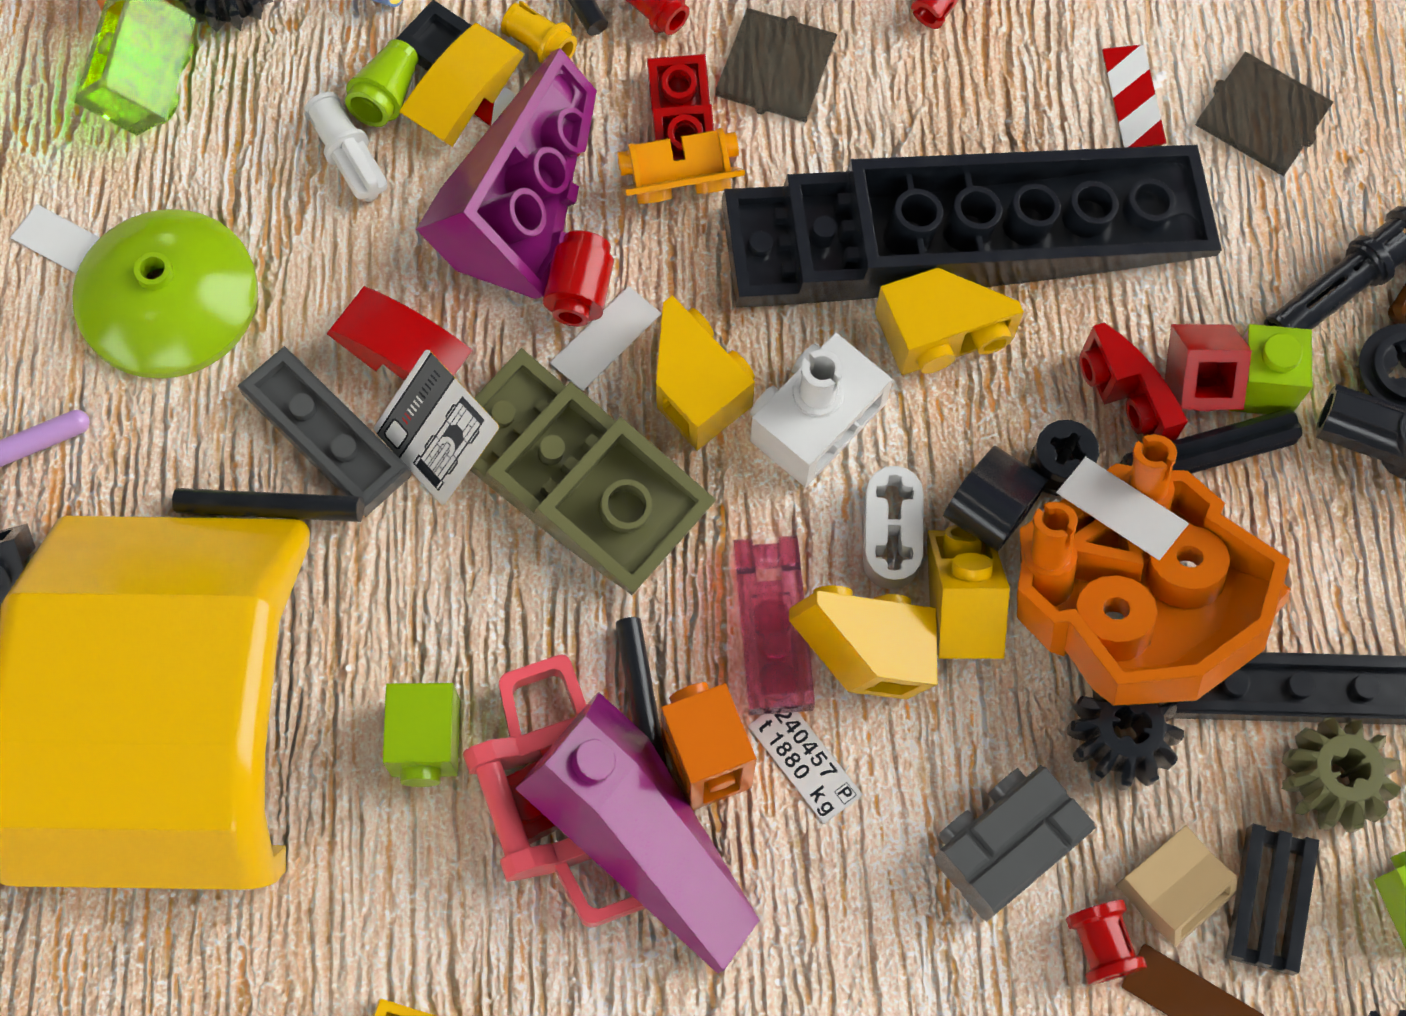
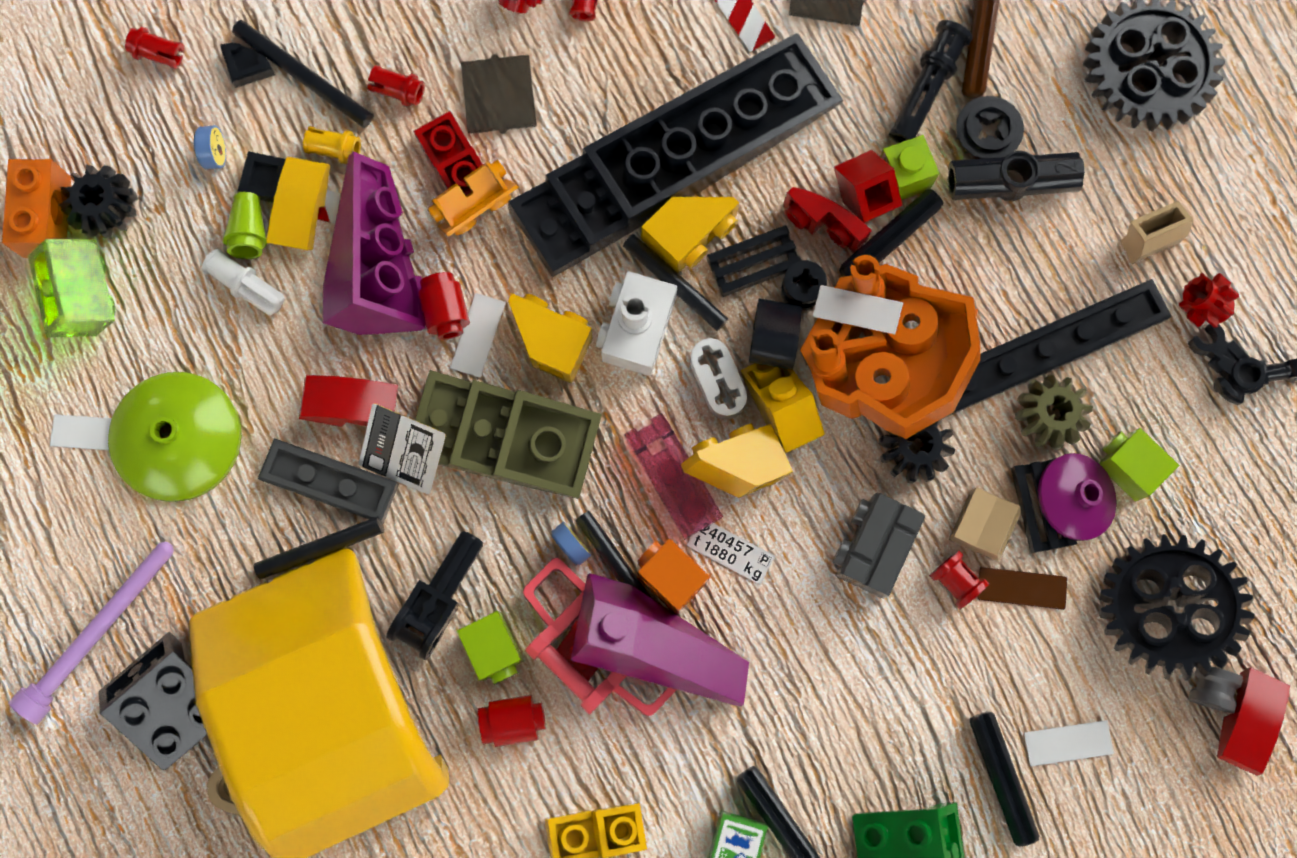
camera: 25 degrees left, 10 degrees up
(373, 644) = (431, 605): none -> black connector
(399, 842) = (511, 721): none -> red brick
(593, 647) = (570, 544): none -> medium blue tile
(900, 394) = (684, 289): none -> black bar
(1010, 379) = (787, 247): none -> black tile
(1306, 911) = (1064, 499): none -> magenta dish

